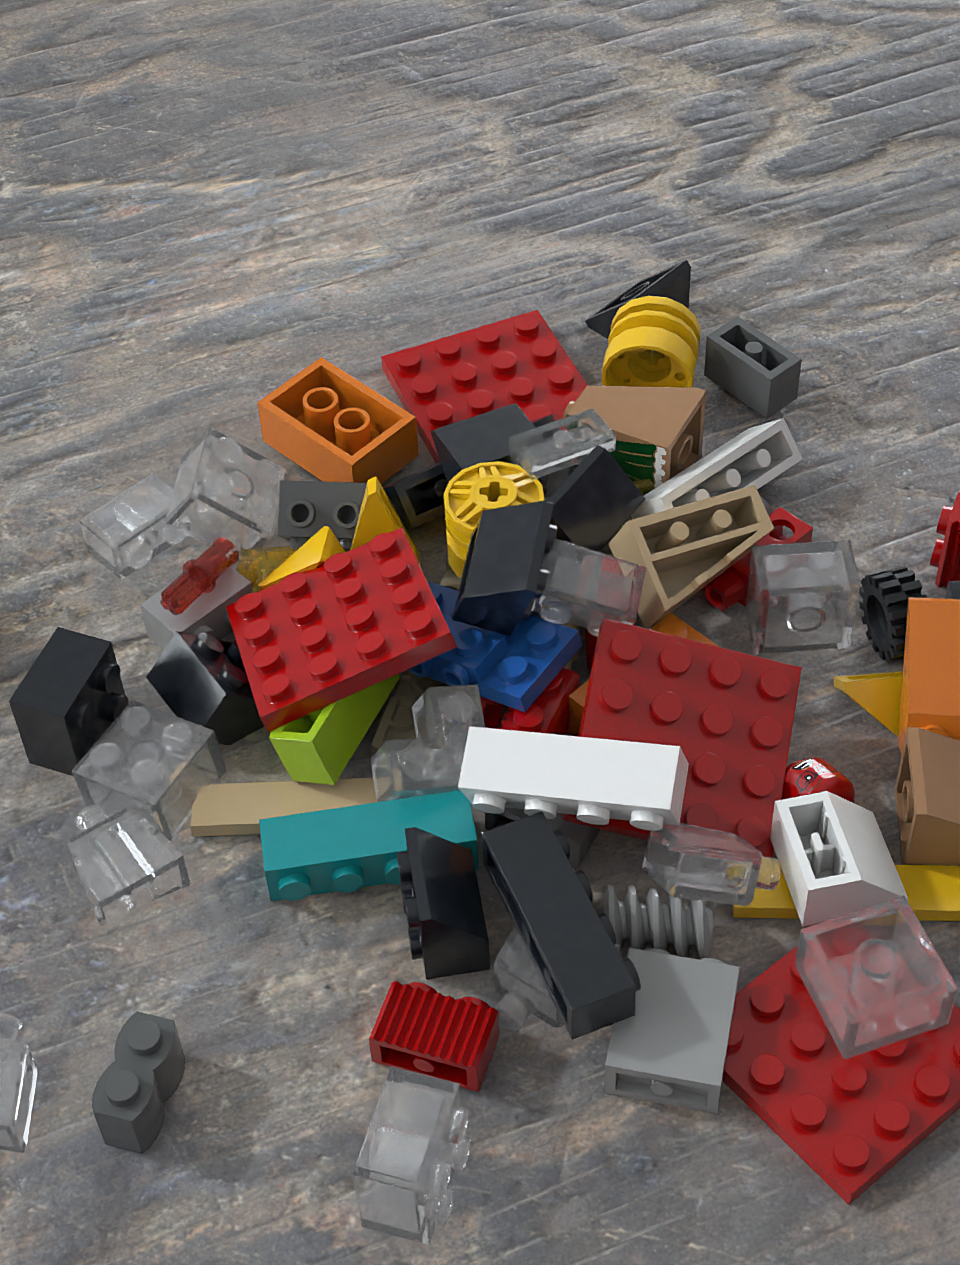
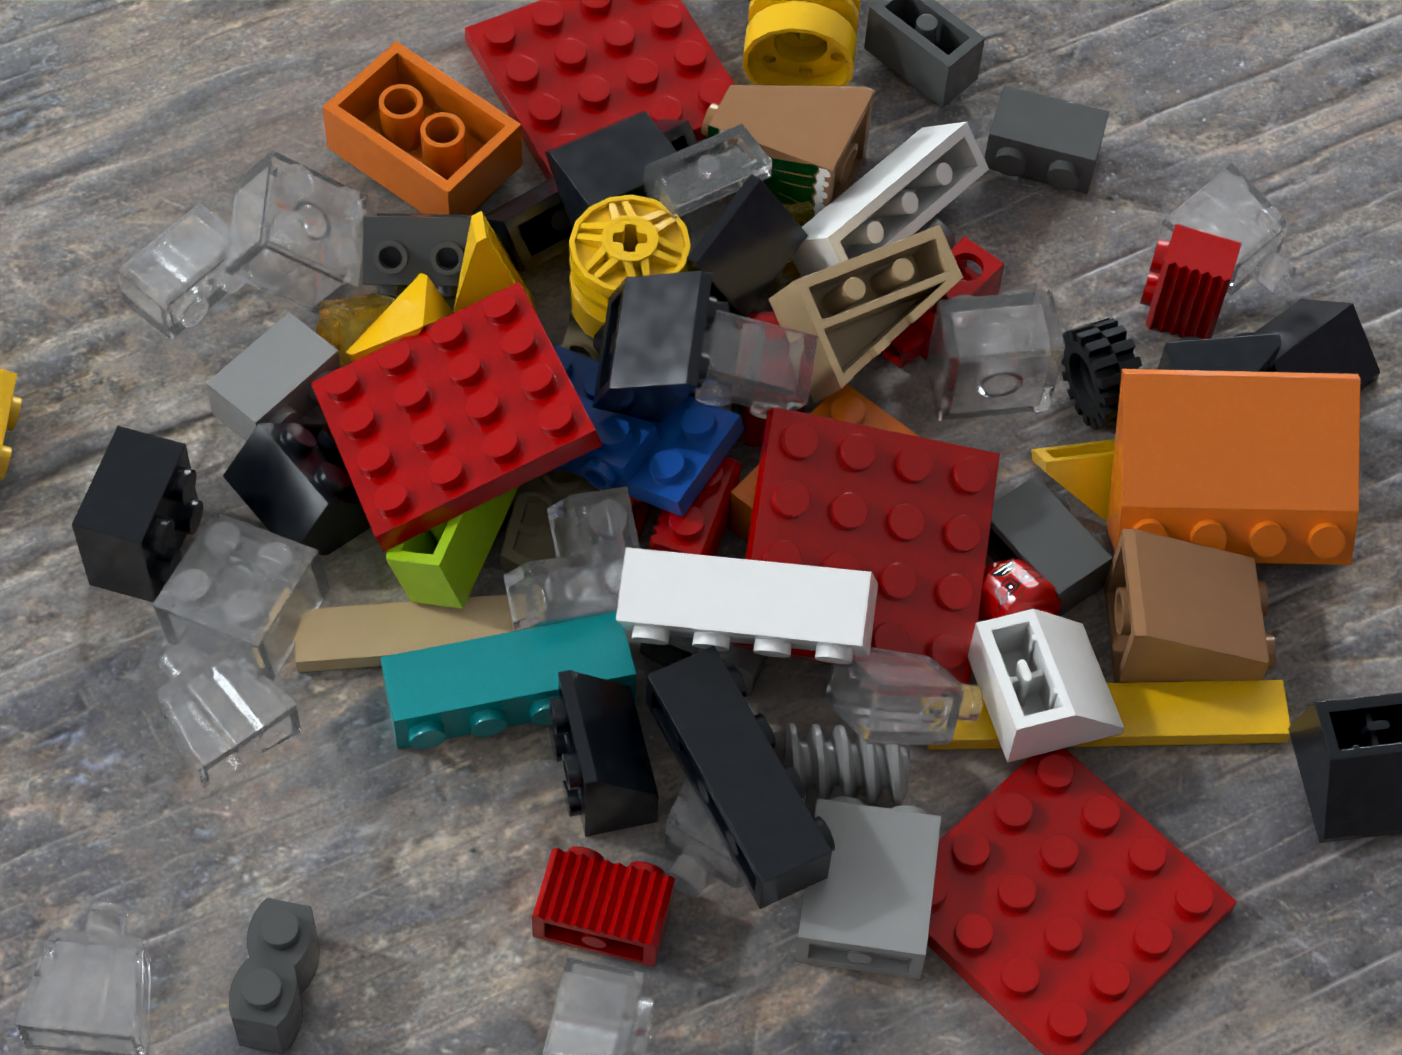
camera: 10 degrees left, 10 degrees up
(199, 576) = (277, 347): clear red axle -> none
(846, 742) = (1041, 530): none -> dark grey brick
(852, 440) = (1045, 139): none -> dark grey brick
(875, 977) = (1091, 825): clear brick -> none

